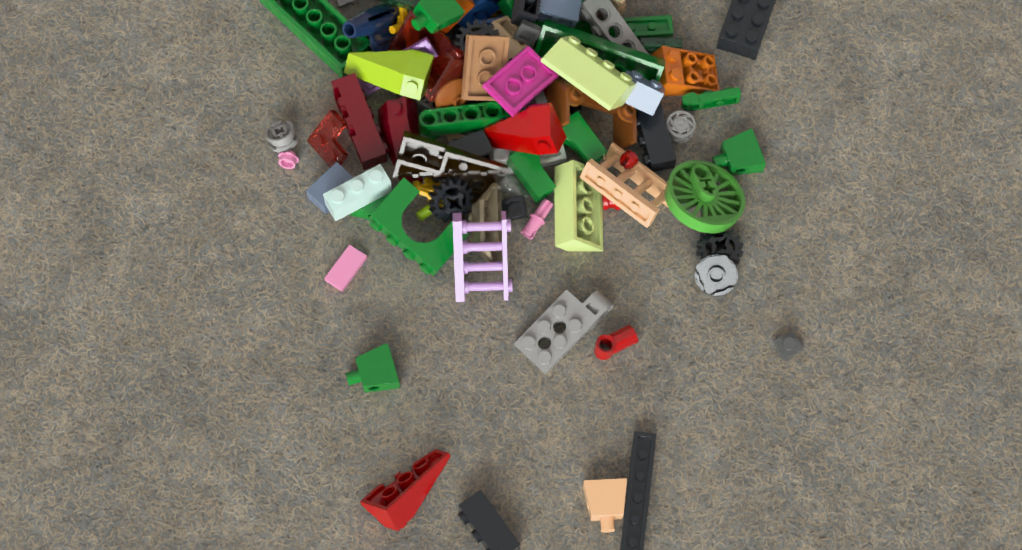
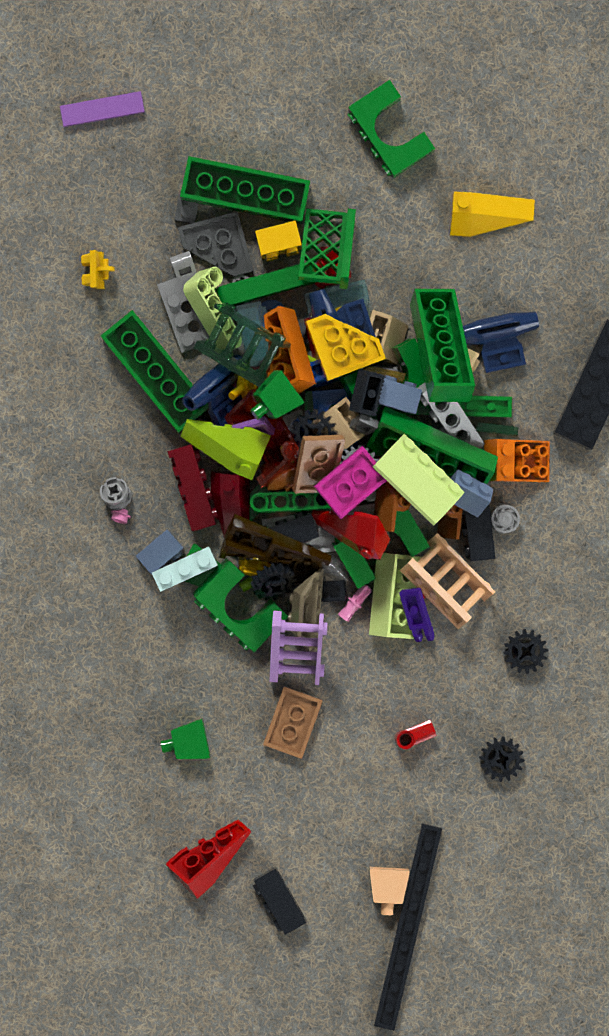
camera: 10 degrees right, 20 degrees up
(324, 139) = (157, 503): clear red plate -> none
(345, 268) = (168, 633): bright pink tile -> none
(484, 342) = (292, 722): none -> medium nougat plate
(578, 320) = (382, 709): light grey hinge -> none
(602, 219) = (416, 614): none -> dark purple hinge
(628, 164) = (449, 556): red hinge -> none
(701, 191) = (519, 610): bright green piece -> none
(707, 349) = (491, 762): none -> black gear
(711, 99) = (537, 492): green hinge -> none
(716, 274) = (518, 678): tile -> none
(741, 154) = (559, 555): green torso -> none
(788, 345) = (577, 752): dark grey plate -> none

